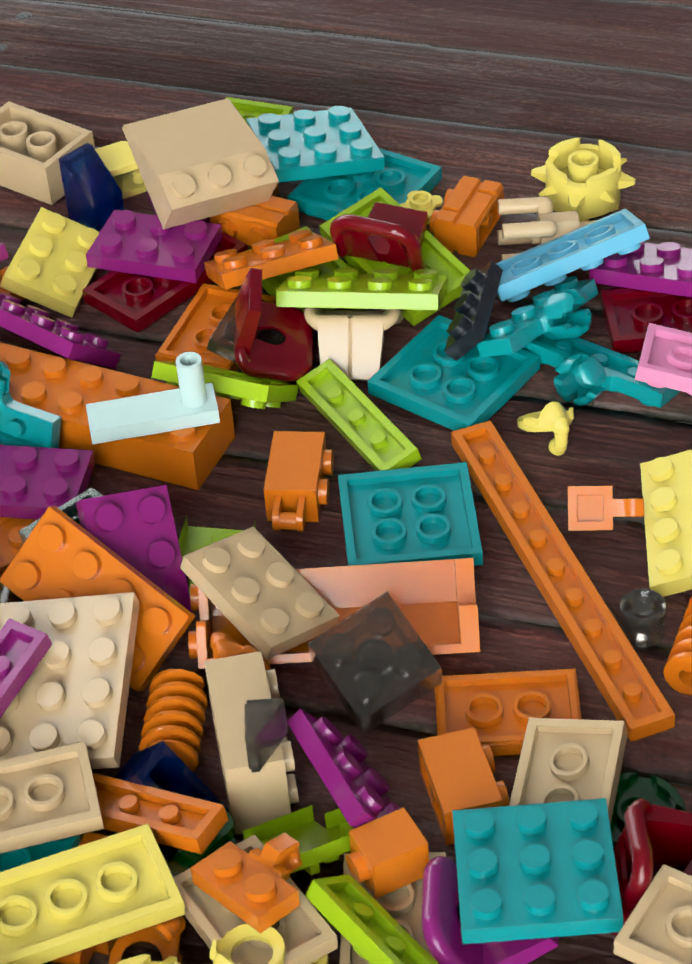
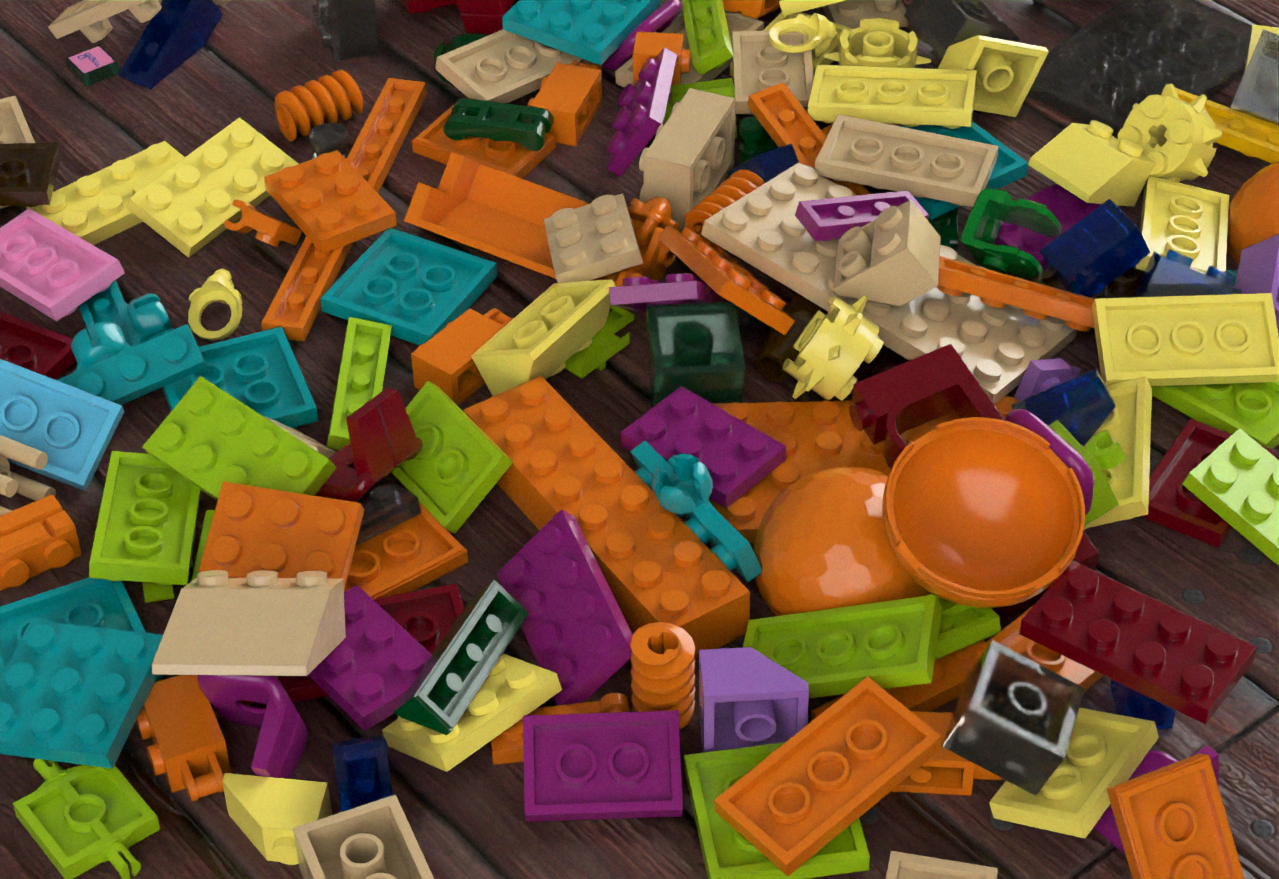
camera: 150 degrees left, 0 degrees up
(74, 255) = (463, 660): none -> slope
(157, 412) = (545, 398): light aqua piece -> none
(218, 483) = (544, 334): none -> light yellow slope
(252, 883) = (763, 57): orange hinge -> none
(263, 730) = (695, 81): clear smoke slope -> none
(375, 663) = (558, 159): clear smoke brick -> none
(386, 235) = (149, 500): dark red piece -> none
(422, 201) = (53, 572): light yellow plate -> none
(473, 310) = (146, 407): black plate -> none
(496, 703) = (499, 122): none -> dark green plate
(556, 538) = (330, 201): none -> orange plate

